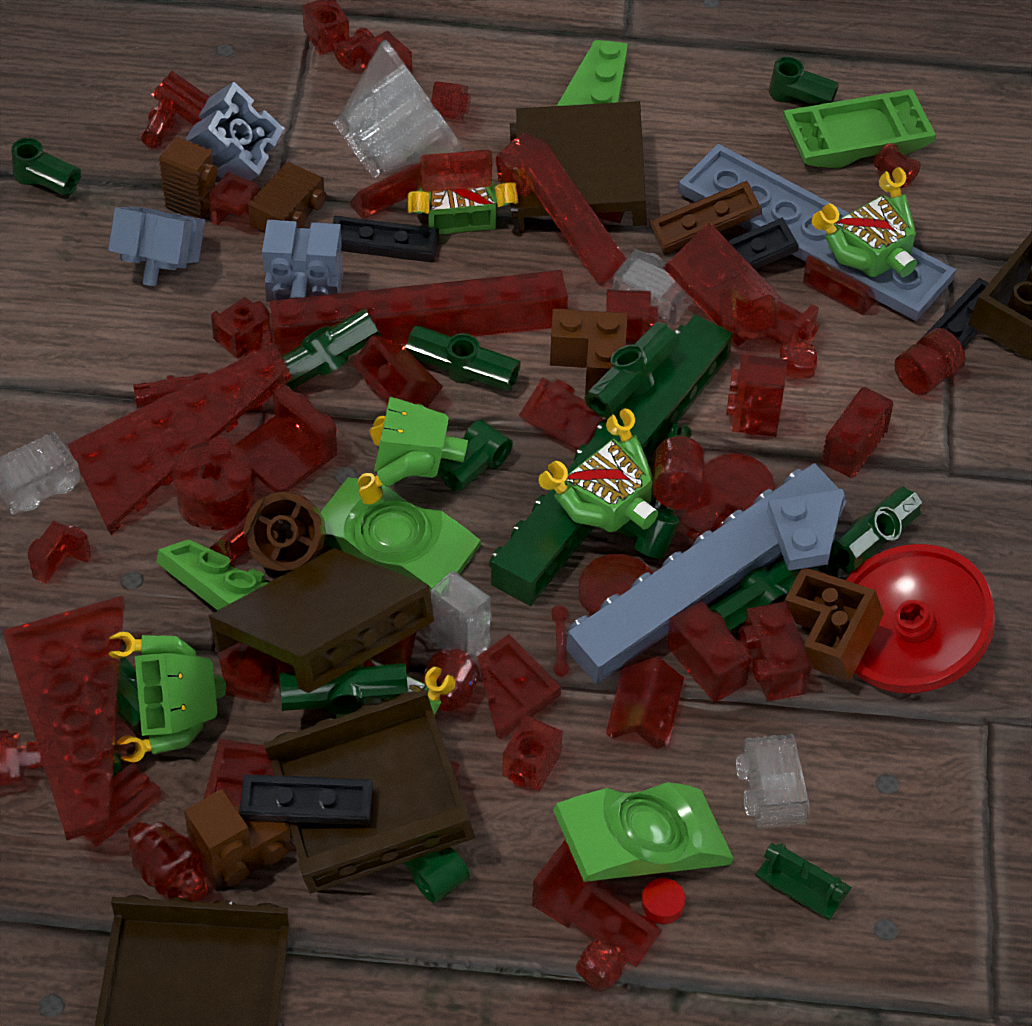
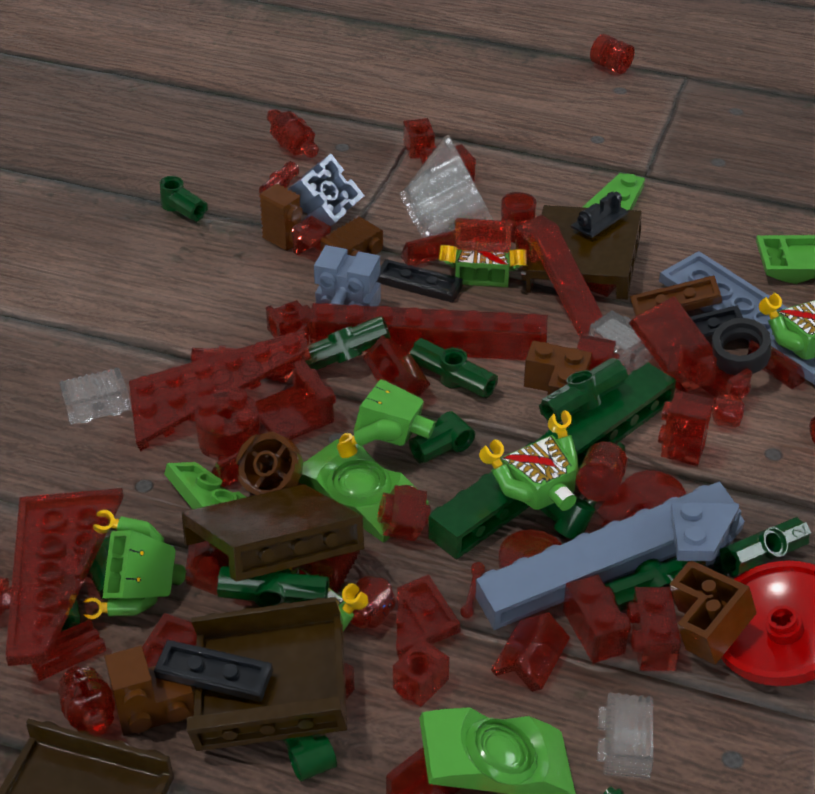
camera: 15 degrees right, 10 degrees down
(53, 547) = (89, 451): clear red bracket -> none
(157, 238) = (242, 252): sand blue brick -> none
(158, 43) = (292, 133): none -> clear red piece
(181, 97) = (293, 164): clear red tile -> none
(451, 100) = (494, 193): clear red bracket -> none
(460, 553) = (404, 512): none -> clear red brick
(460, 616) = (389, 550): clear brick -> none
(486, 125) = (518, 209): none -> clear red wheel
(560, 413) = (519, 417): clear red bracket -> none
(594, 119) = (599, 217): none -> black hinge
(792, 82) = (769, 219): dark green piece -> none
(802, 252) = (739, 329): none -> black tyre
(857, 432) = (766, 471): clear red brick -> none

